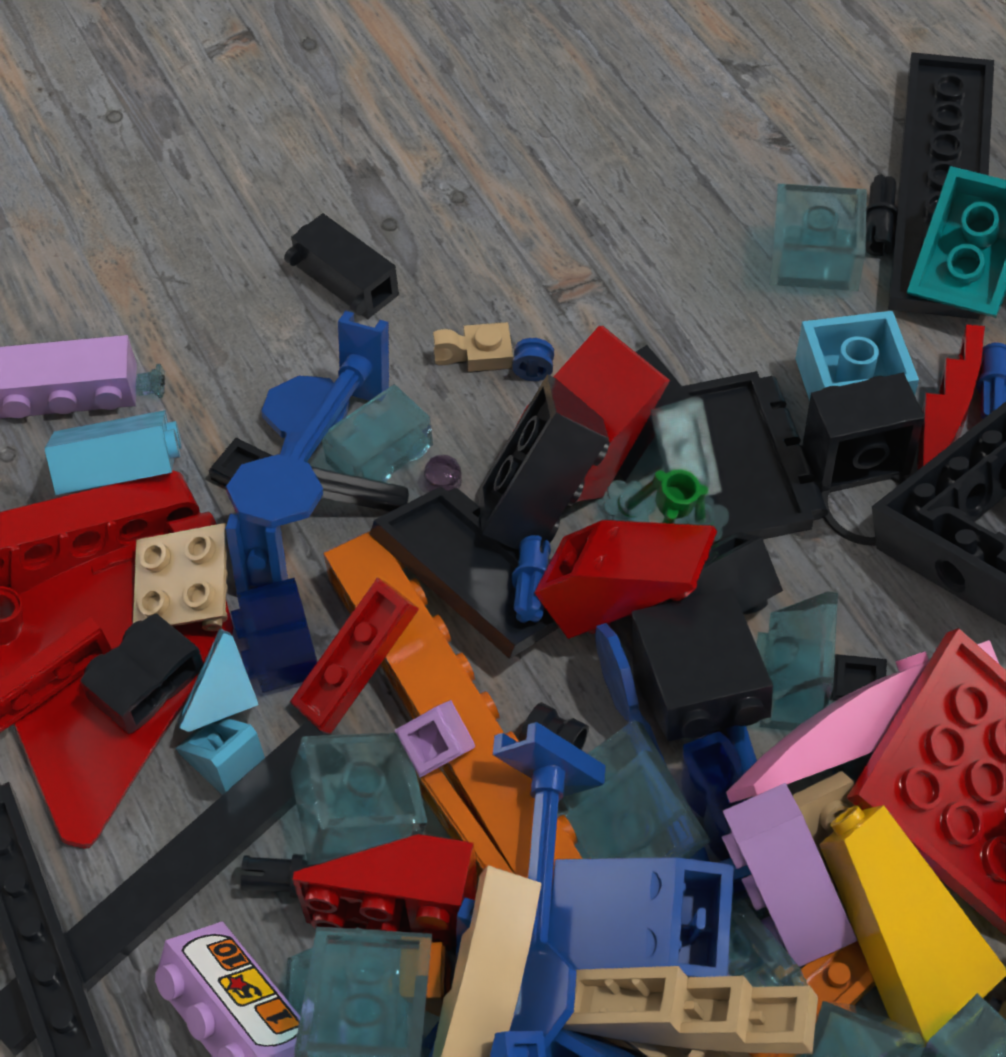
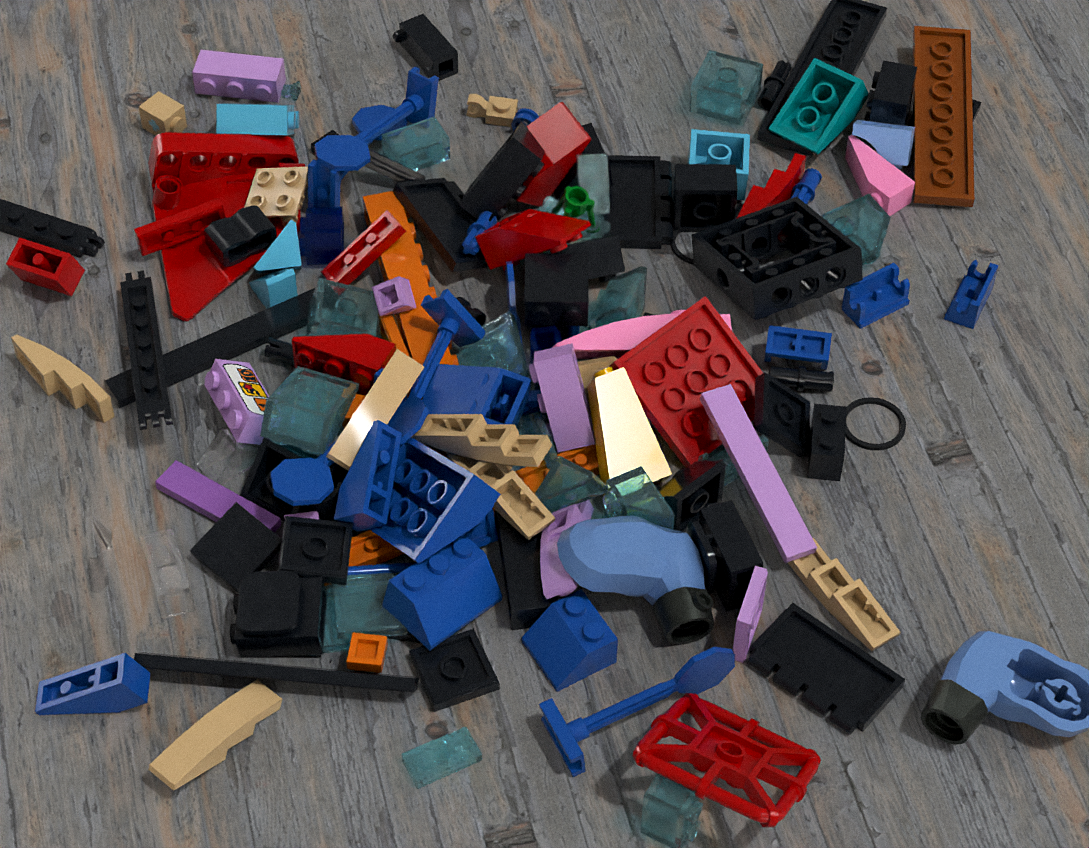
camera: 10 degrees right, 5 degrees down
(438, 473) = (450, 172): clear purple hinge -> none

